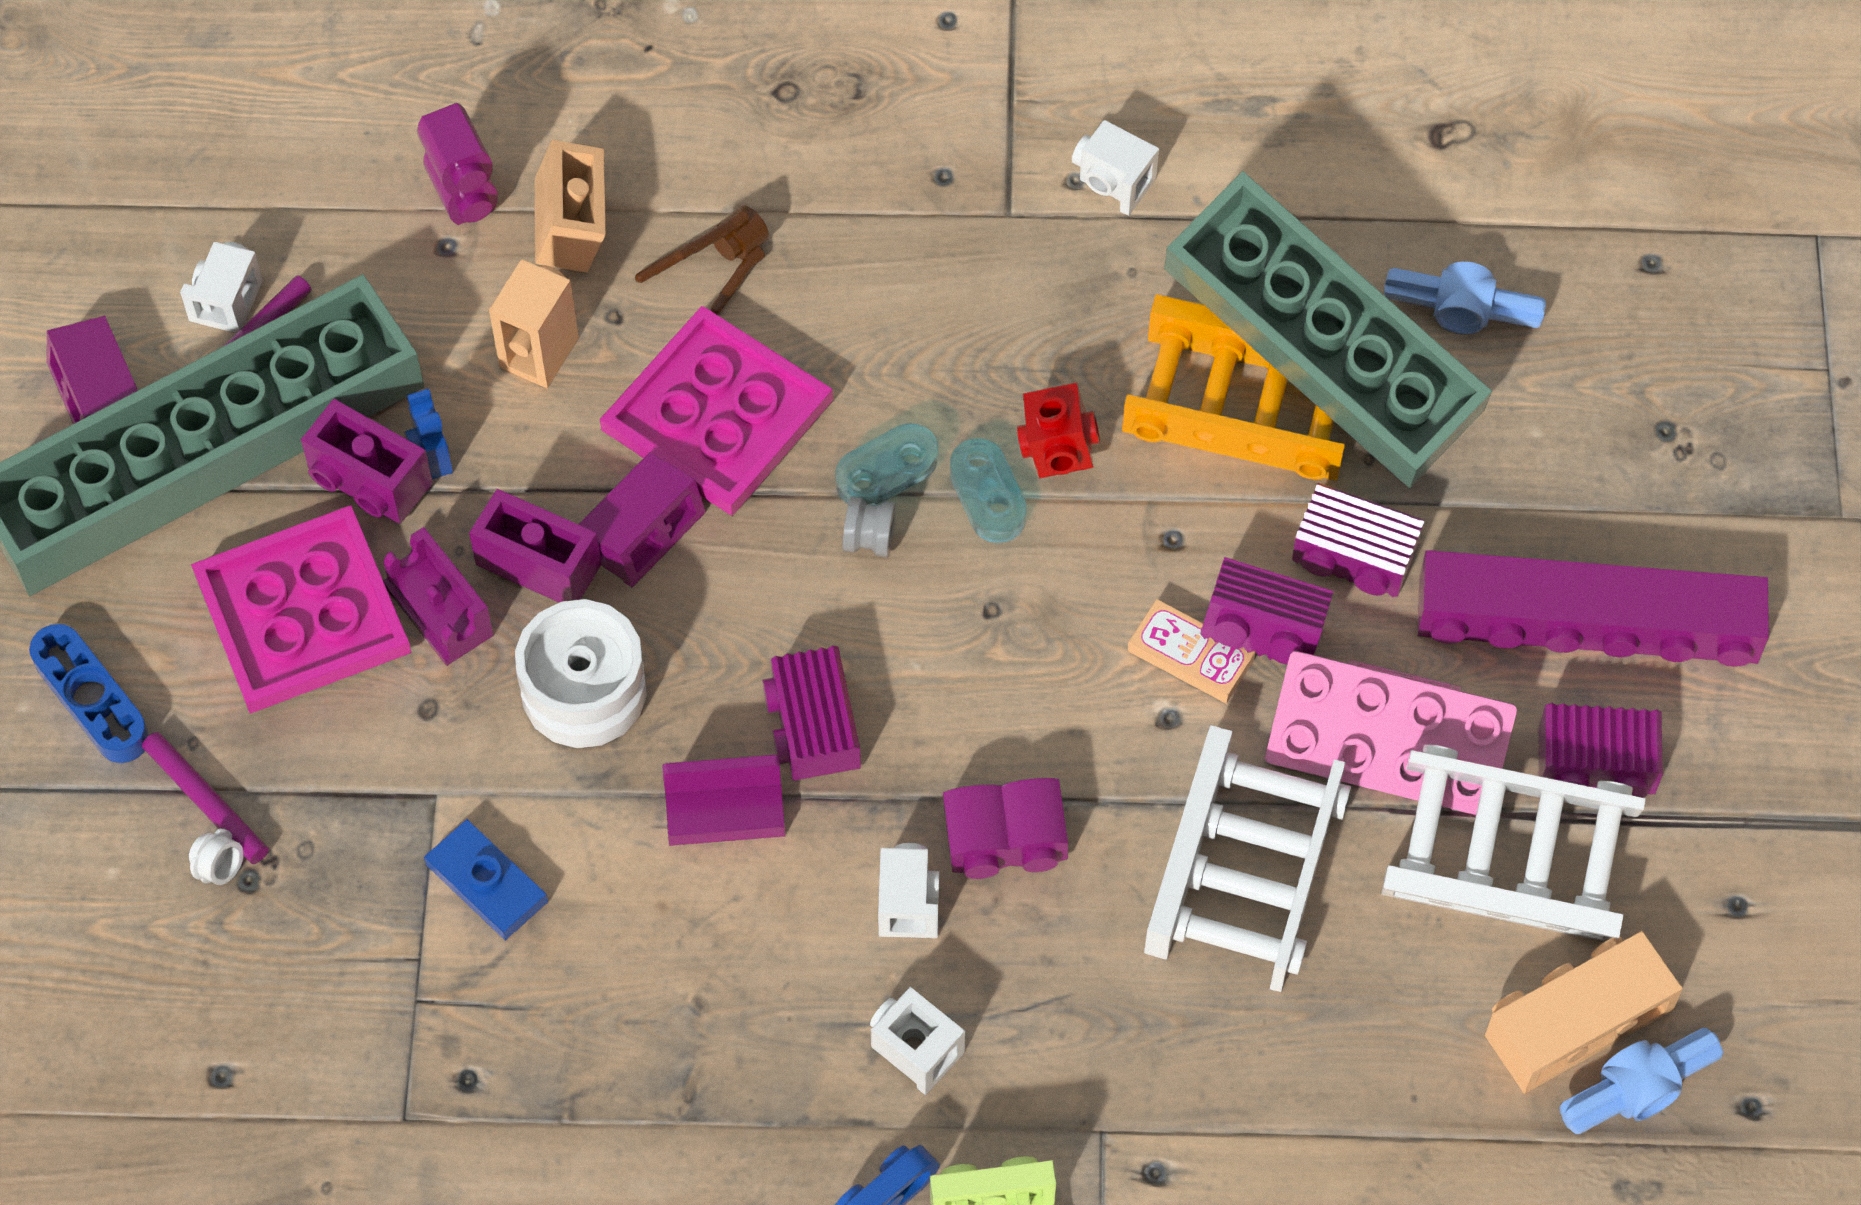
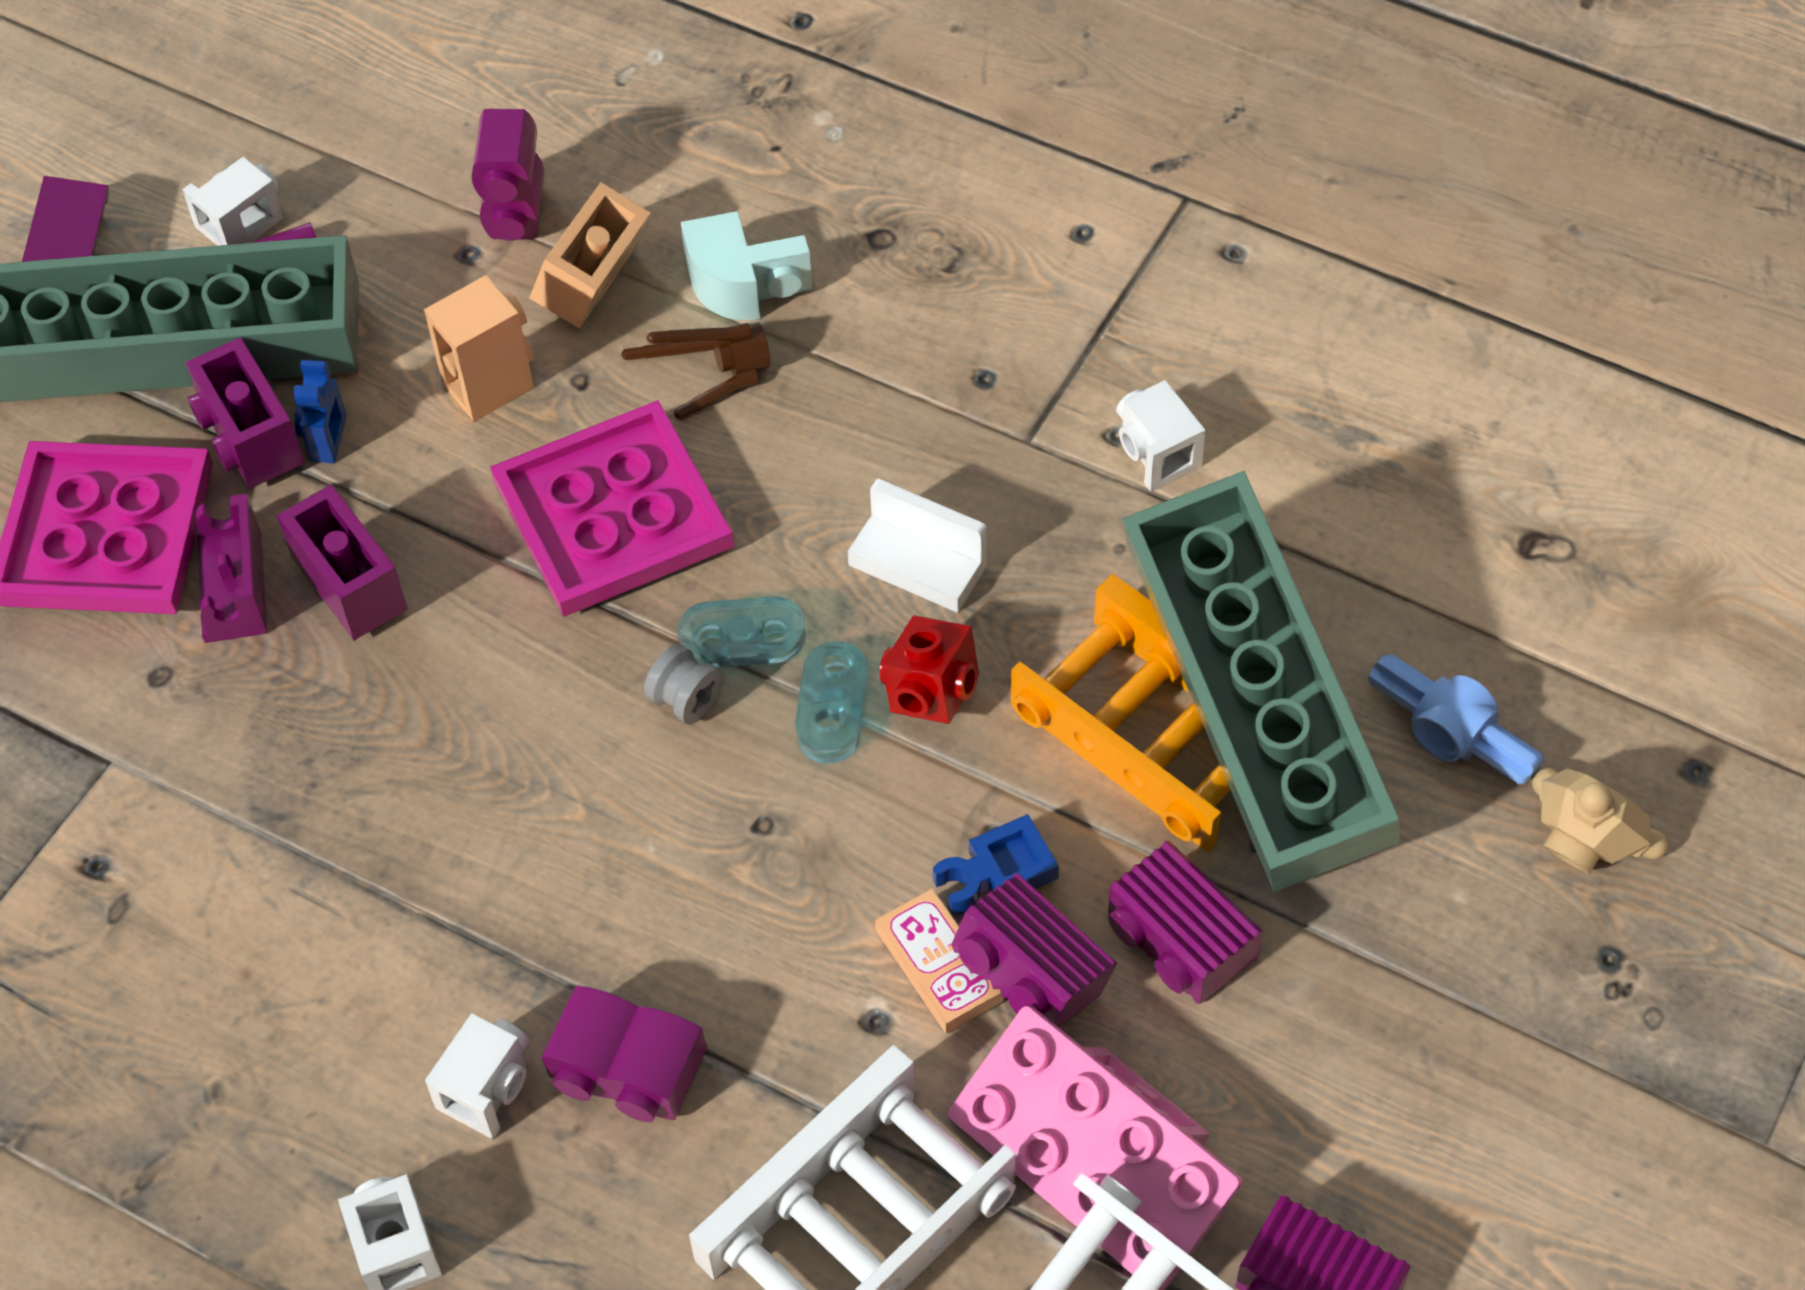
camera: 30 degrees right, 5 degrees down
(486, 879) = (94, 866): blue plate -> none
(581, 673) = (303, 701): white wheel -> none
(644, 517) = (469, 580): magenta hinge -> none
(689, 173) = (734, 276): none -> light aqua brick
(723, 800) = (366, 893): magenta panel -> none
(814, 713) = (507, 846): magenta brick -> none
(984, 336) = (920, 546): none -> white panel
(1195, 557) = (995, 859): none -> blue plate
(1593, 607) = (1408, 1115): magenta brick -> none
(1604, 332) = (1592, 821): none -> tan rock

